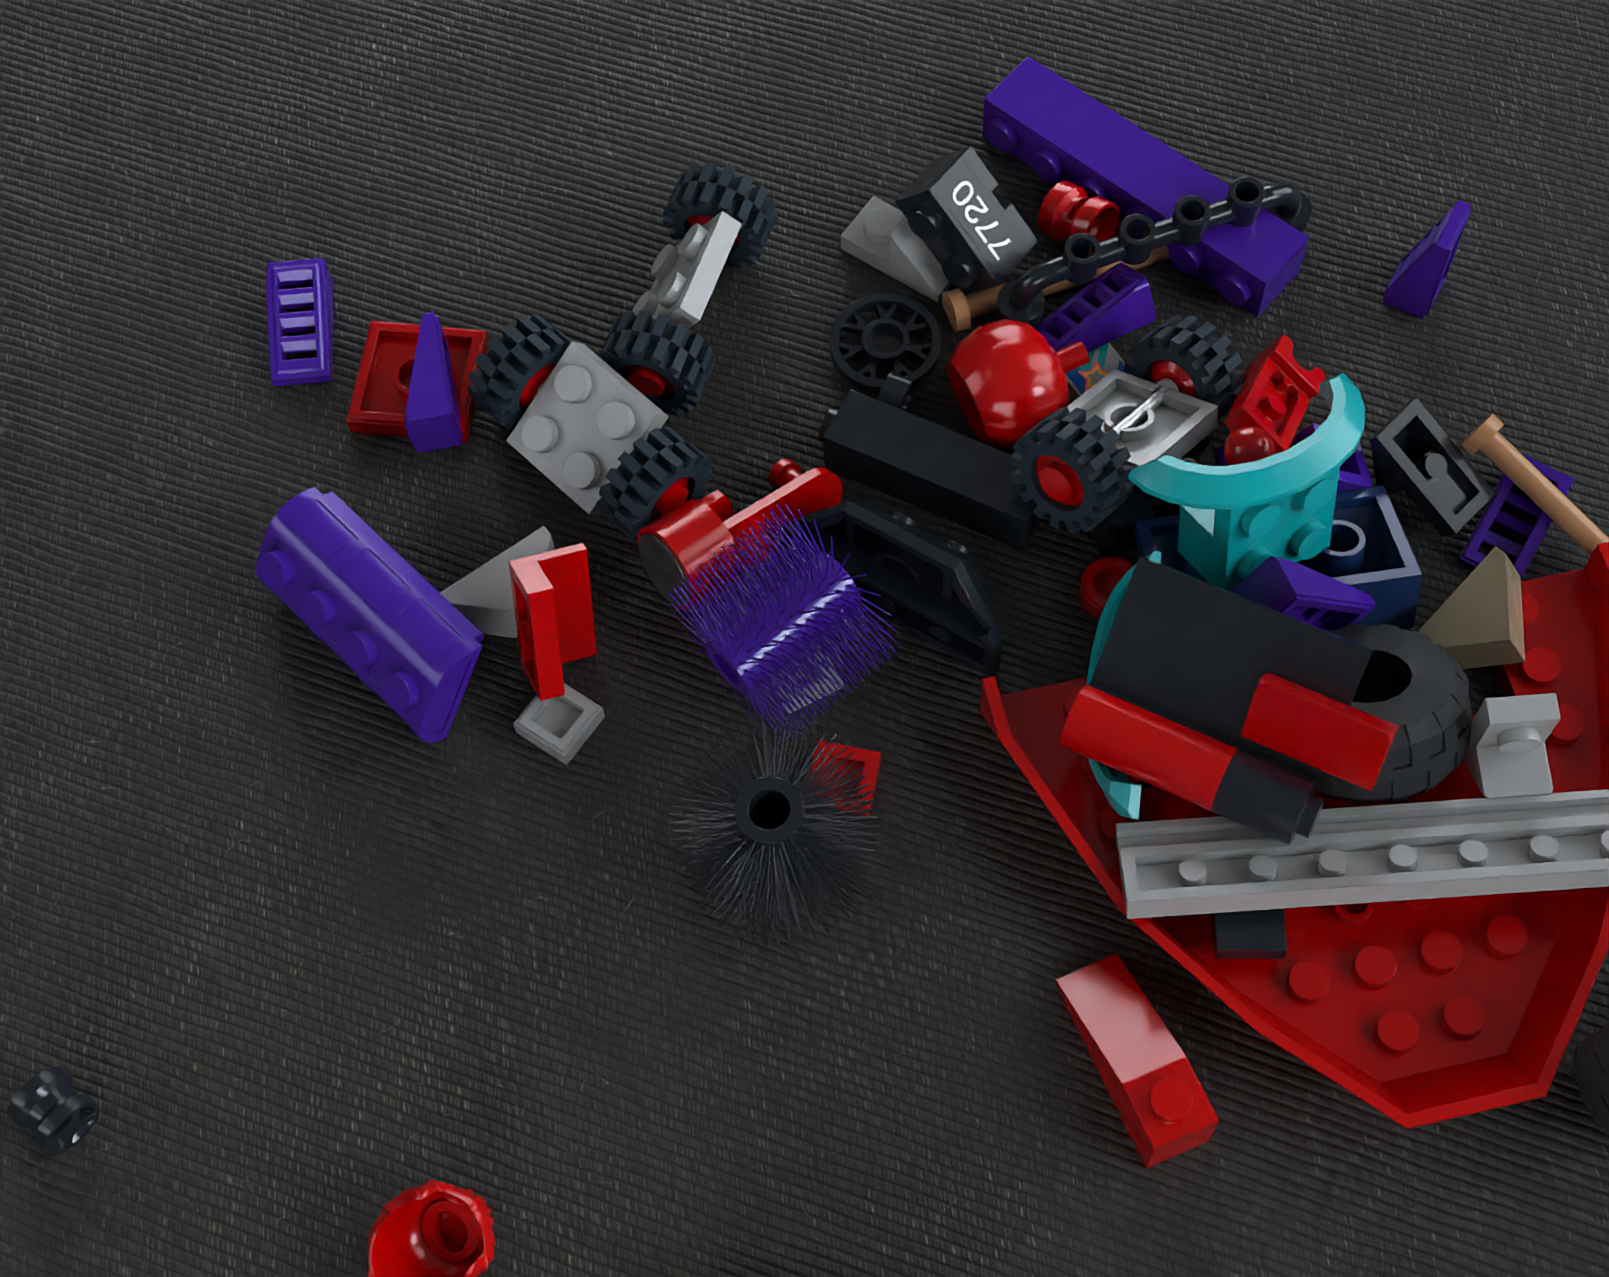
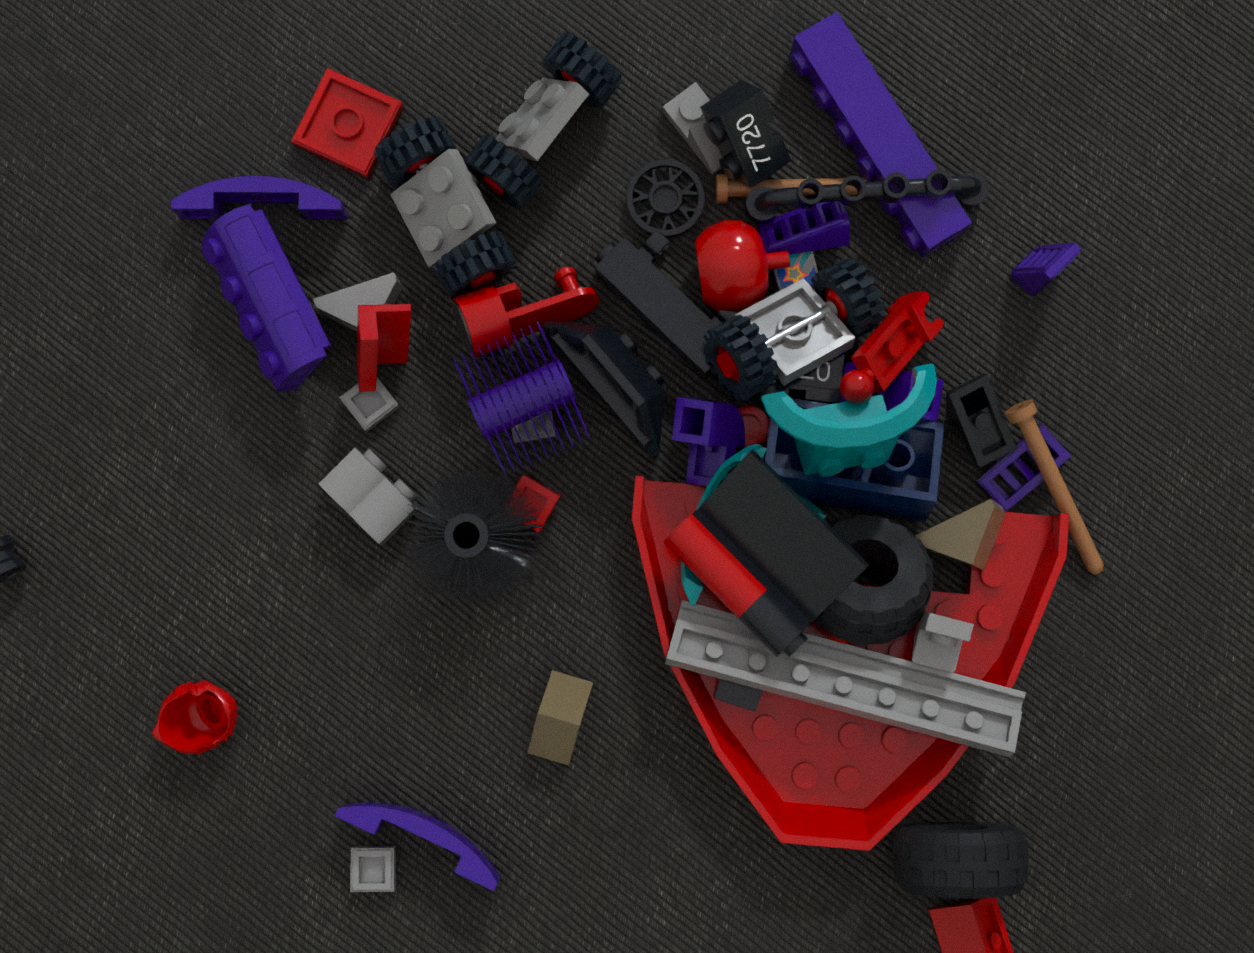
camera: 15 degrees right, 20 degrees up
(300, 286) = (298, 39): dark purple slope -> none
(405, 480) = (209, 199): none -> dark purple slope
(432, 403) = (349, 151): dark purple slope -> none
(600, 840) = (369, 495): none -> light grey brick
(995, 1075) = (560, 717): none -> dark tan slope
(1065, 590) = (712, 432): none -> dark purple brick
(1070, 211) = (826, 150): red wheel -> none
(1138, 1061) = (645, 737): red slope -> none
(1305, 594) = (846, 496): dark purple slope -> none
(1318, 730) = (818, 599): red slope -> none

